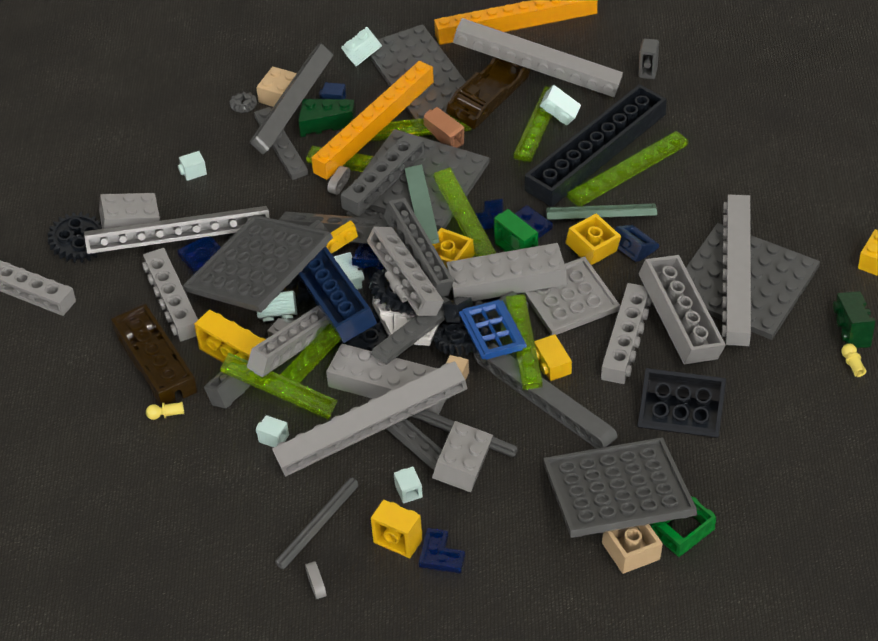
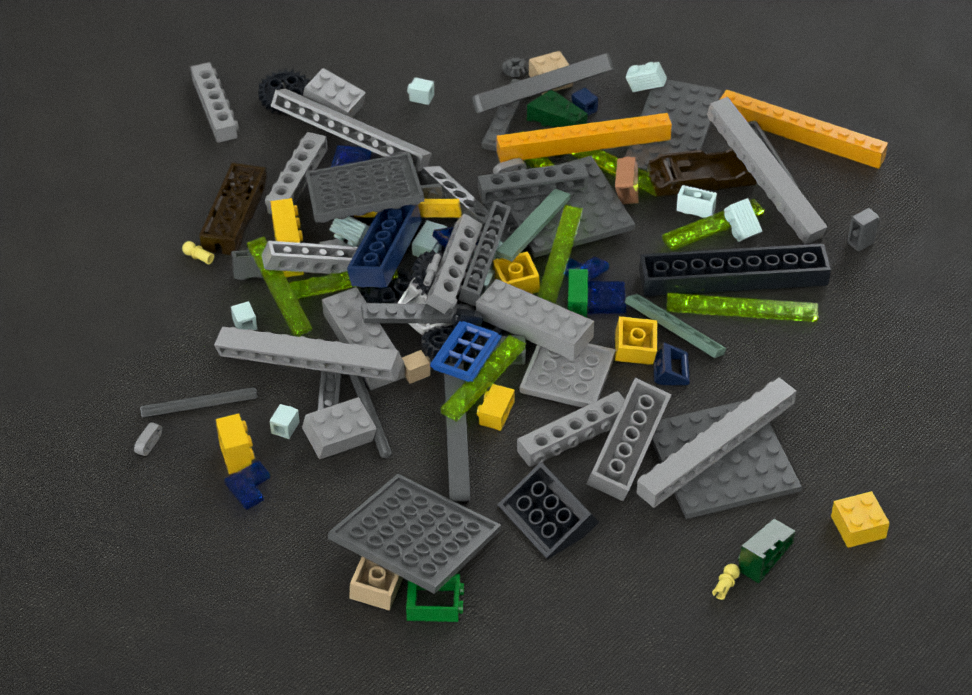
camera: 40 degrees right, 0 degrees up
(510, 113) = (696, 201): none -> light aqua brick

